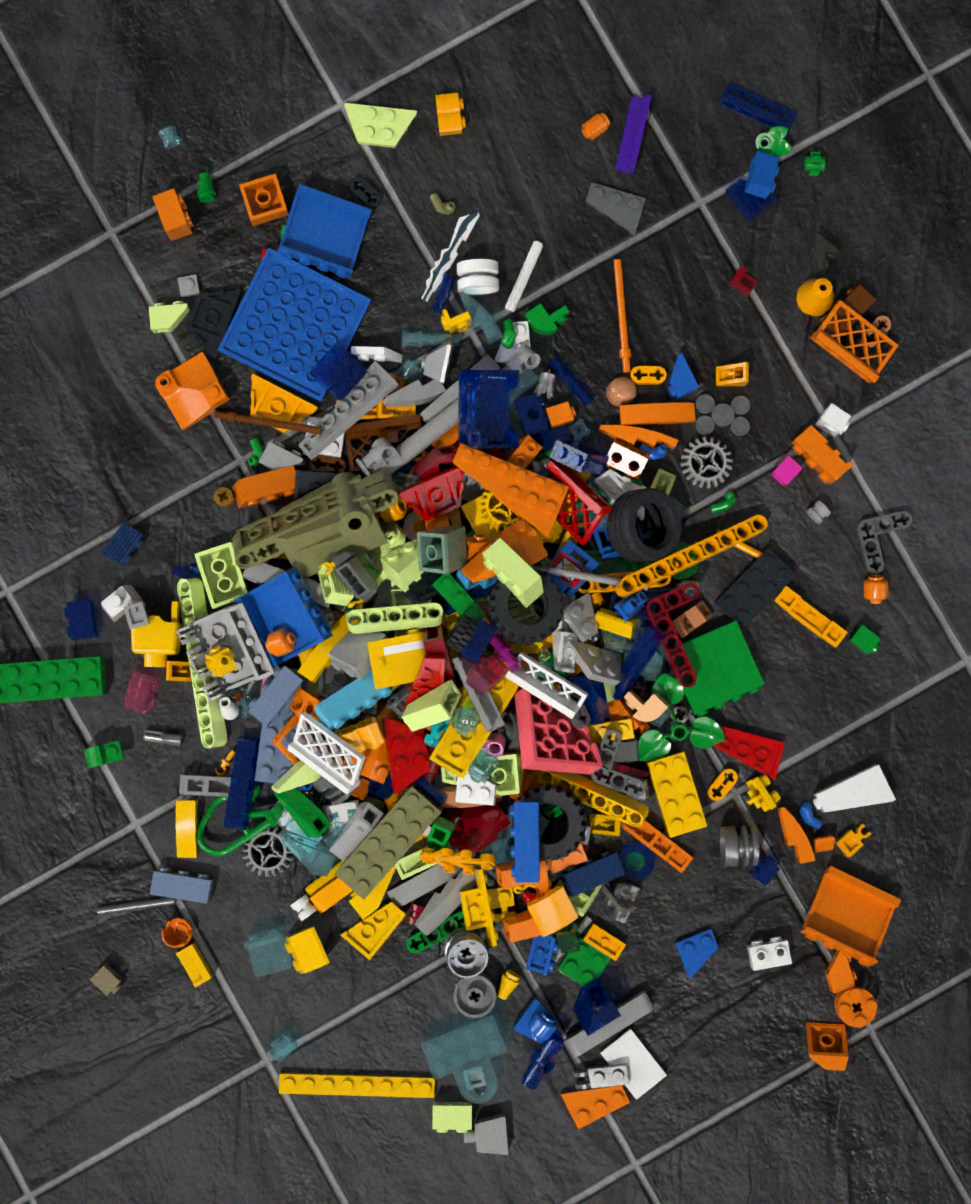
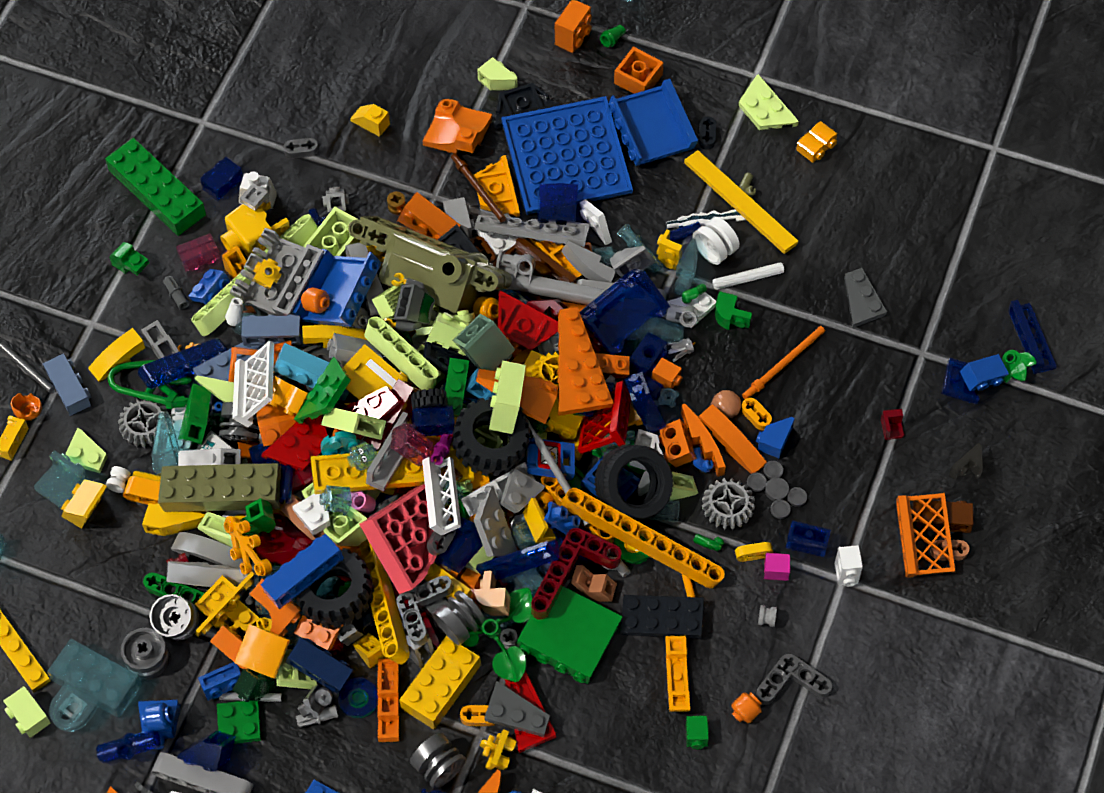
camera: 50 degrees right, 25 degrees down
(99, 529) = (301, 148): none -> flat silver beam
(122, 453) = (372, 119): none -> yellow slope
(124, 544) = (303, 165): dark blue brick -> none
(181, 706) = (209, 286): none -> blue bracket
(183, 545) = (335, 192): none -> light grey brick
(188, 286) = (532, 75): light grey plate -> none
(255, 914) = (86, 452): none -> yellowish green wing
(257, 453) = (454, 195): green arm -> none
(375, 930) = (138, 544): yellow wing -> none
(388, 707) = (325, 392): none -> green wing
(452, 223) = (741, 202): none -> yellow tile
(489, 1135) = (32, 755): light grey torso -> none
(508, 983) = (175, 674): yellow cone -> none
(576, 387) = (699, 372): clear blue pin -> none
(595, 126) = (905, 239): orange brick -> none
(604, 942) = (269, 722): light orange plate -> none
(633, 134) = (925, 269): dark purple fence -> none
(651, 748) = (462, 614): none -> flat silver wheel
(732, 374) = (815, 471): light orange slope -> none
(745, 759) = (515, 712): none -> dark grey wing
(760, 477) = (753, 551): none -> yellow beam
(785, 429) = (808, 538): none -> clear blue brick
(814, 163) = (1031, 404): green gear -> none
(815, 296) = (934, 479): light orange cone -> none
(820, 455) = (812, 582): orange wedge -> none

